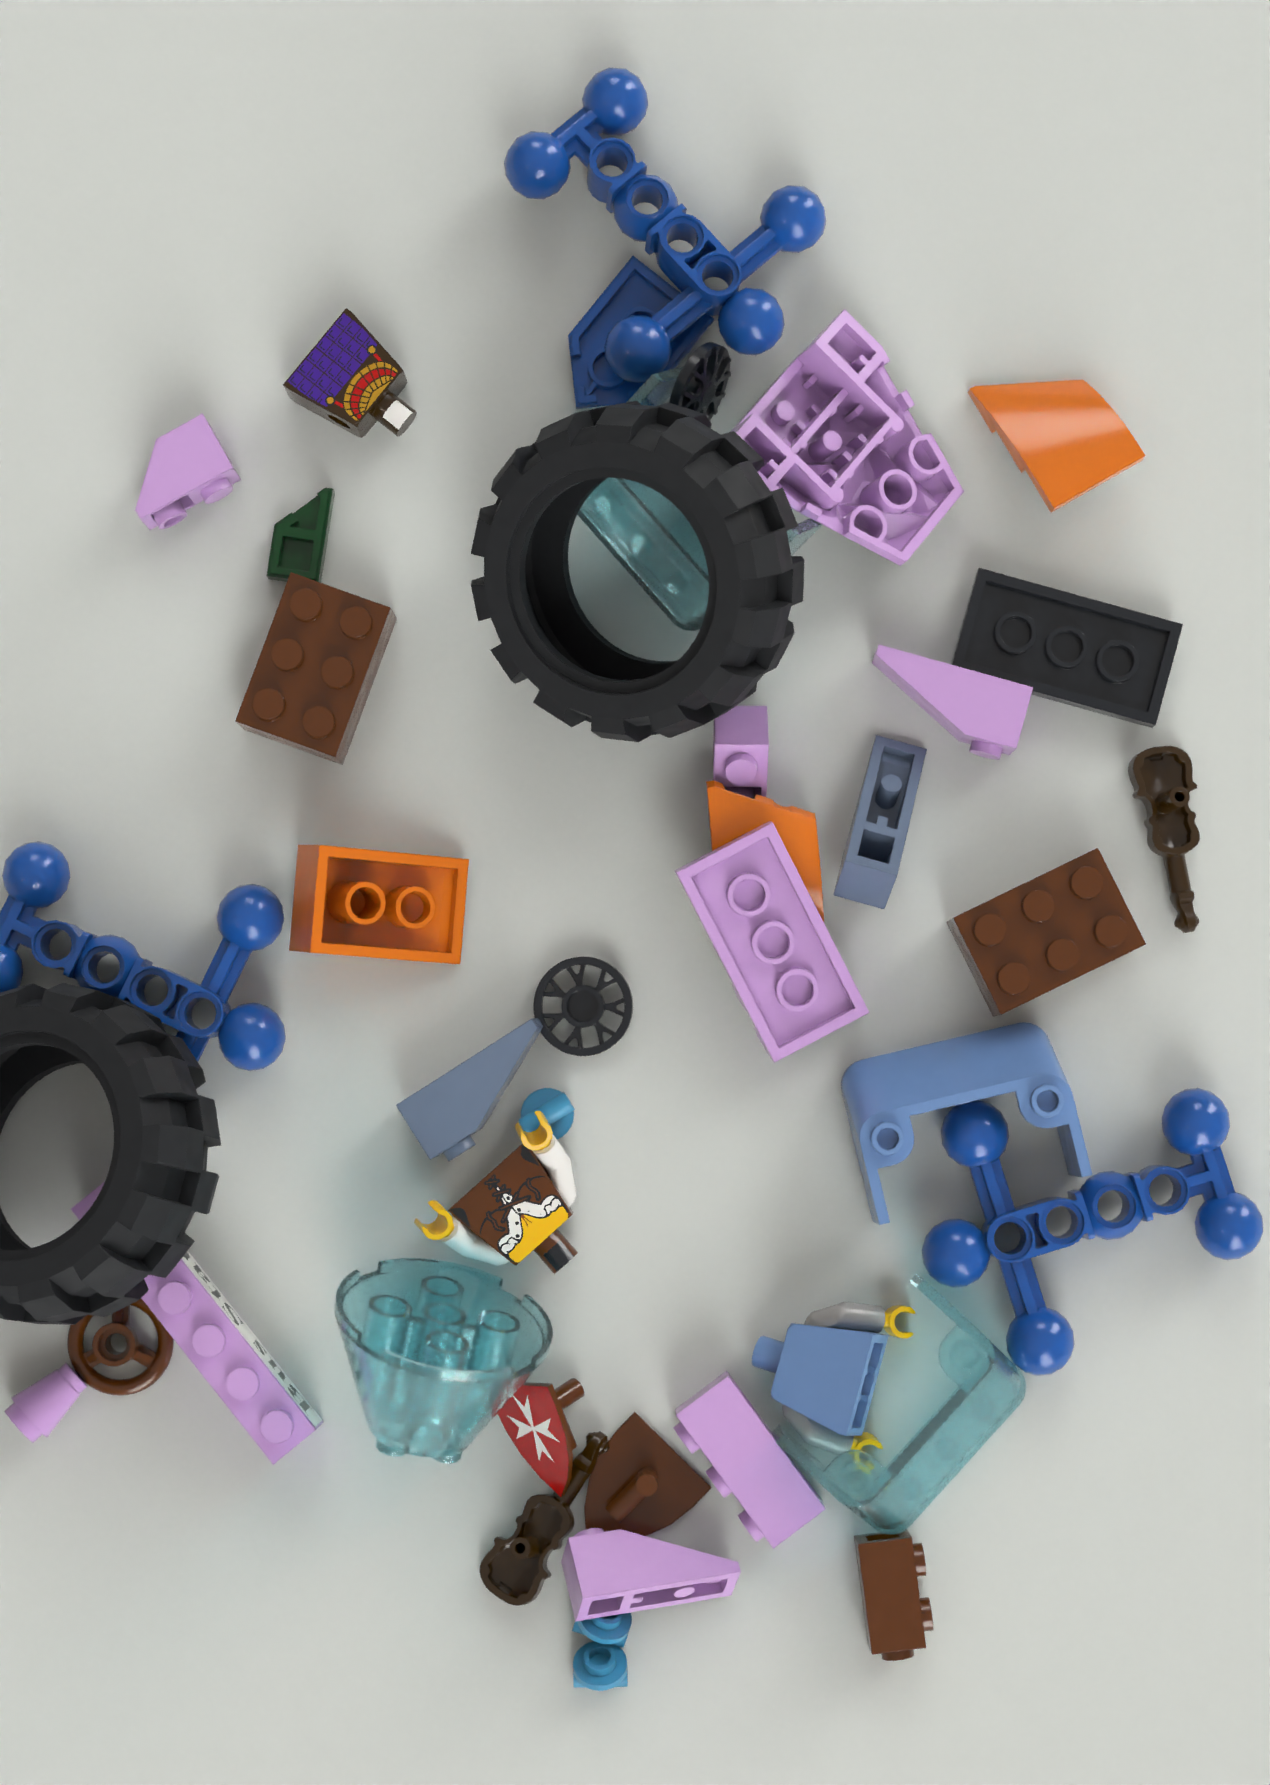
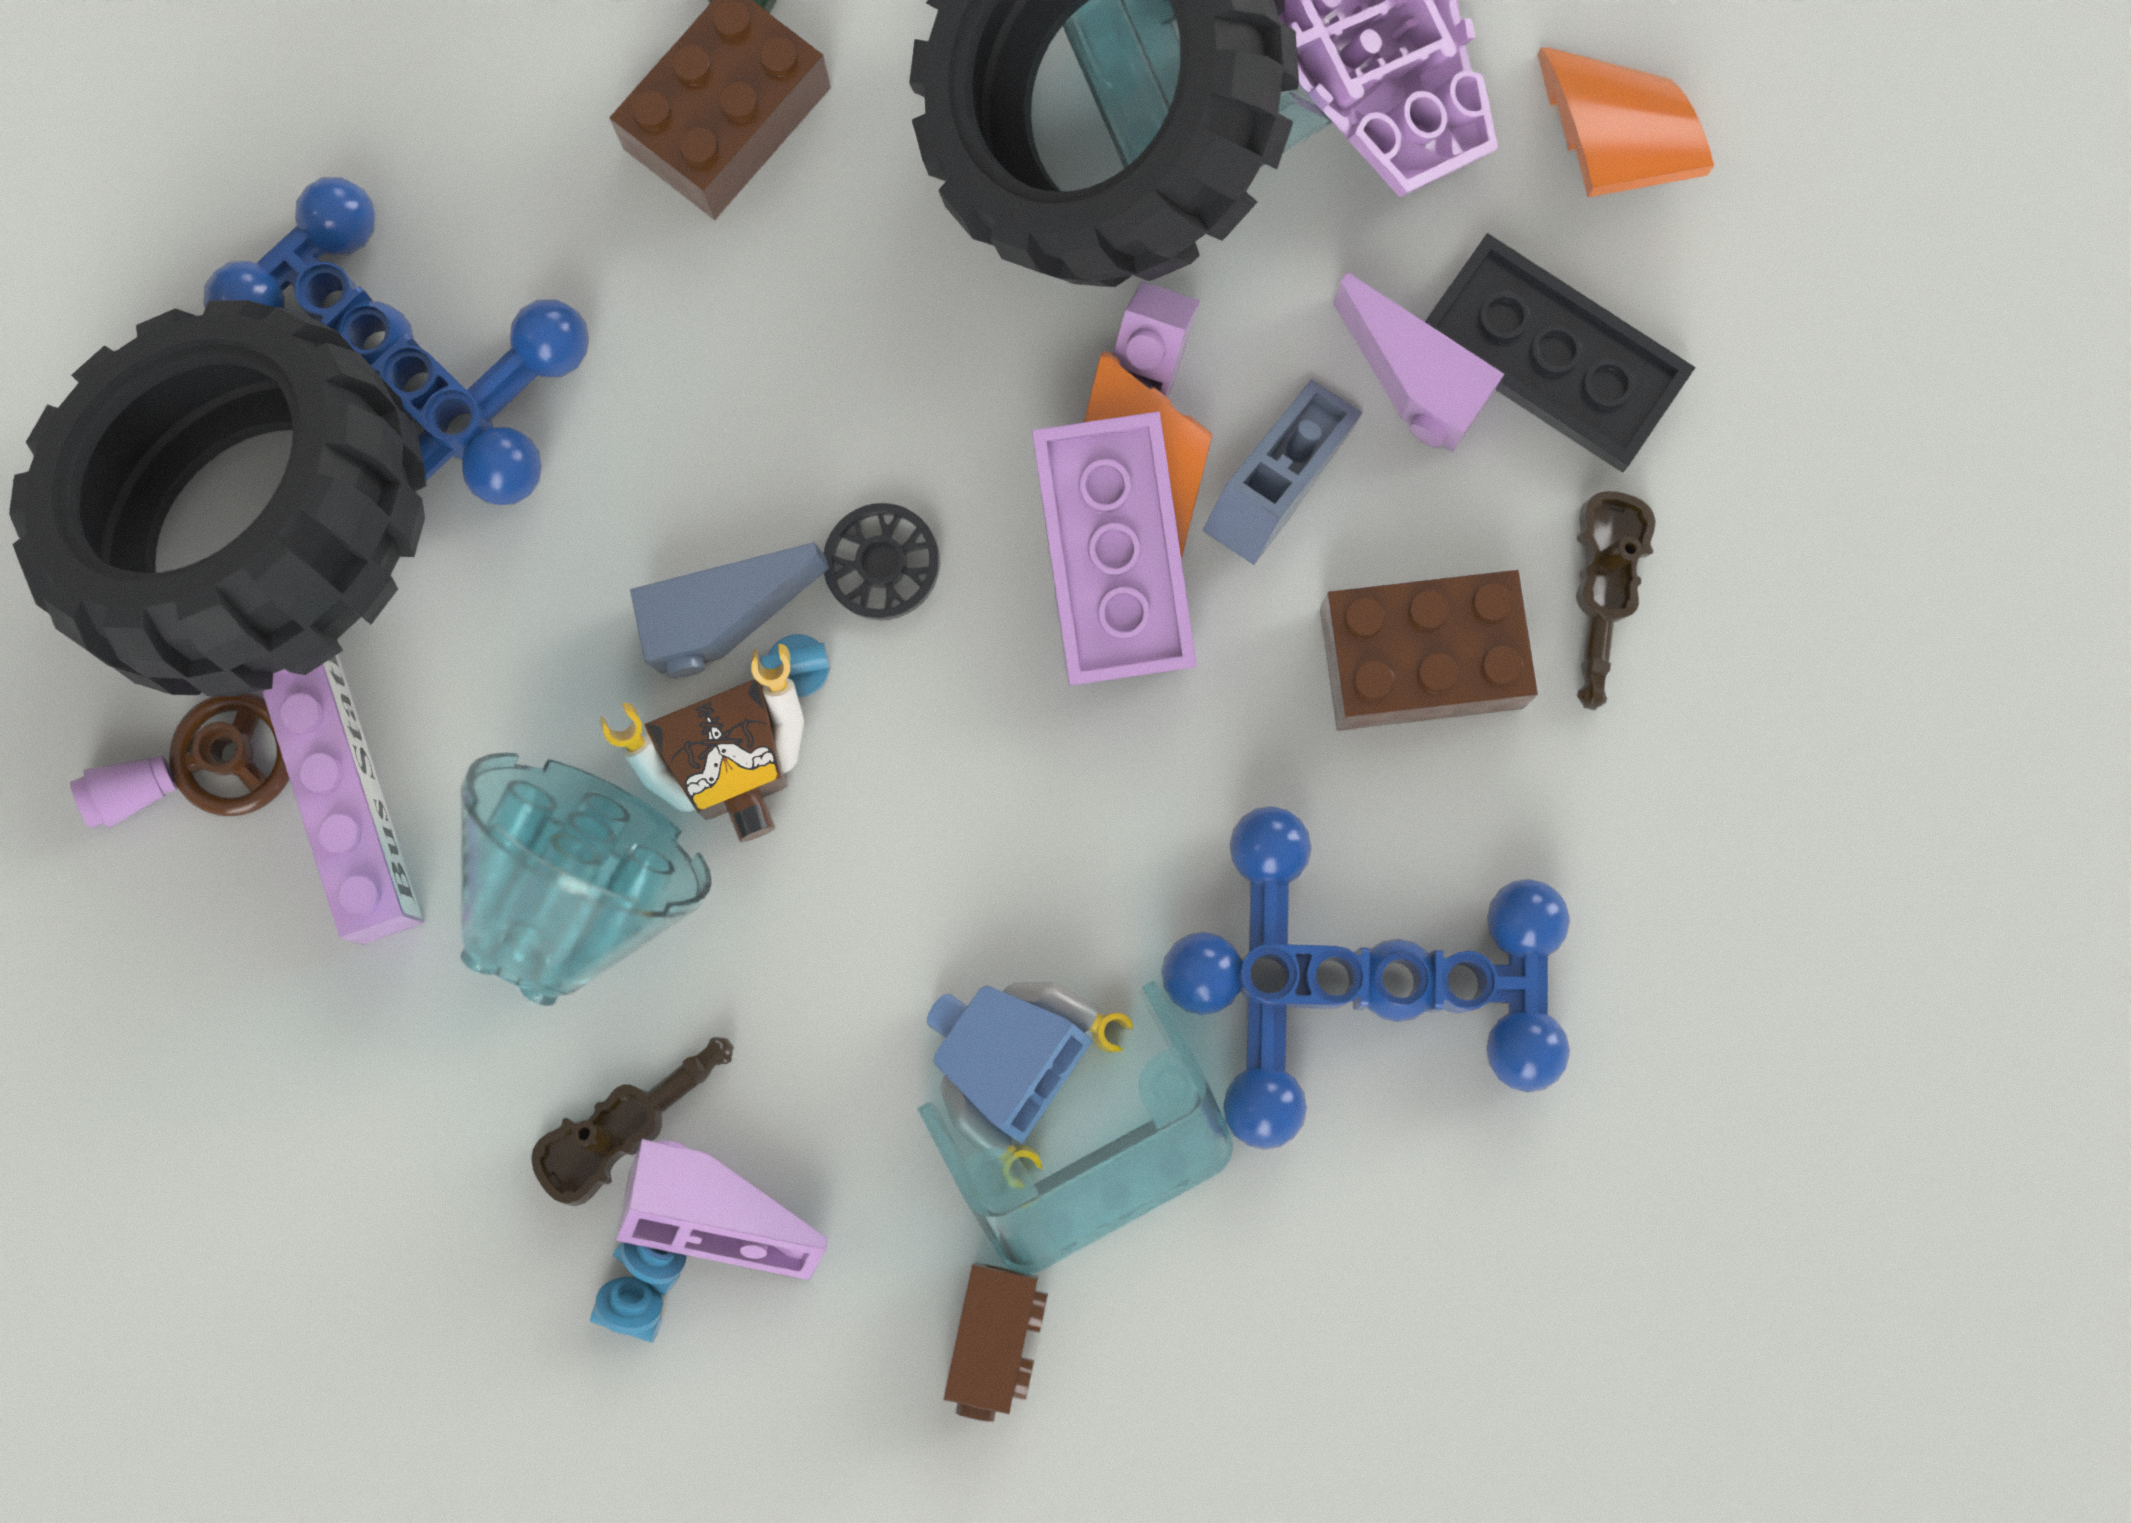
camera: 15 degrees right, 5 degrees down
(378, 904) = (696, 372): orange slope -> none
(541, 1431) = (661, 1006): red shield -> none
(640, 1483) = (753, 1114): reddish brown shield -> none
(747, 1461) = (880, 1127): lavender brick -> none
(891, 1087) = (1350, 777): medium blue windscreen -> none

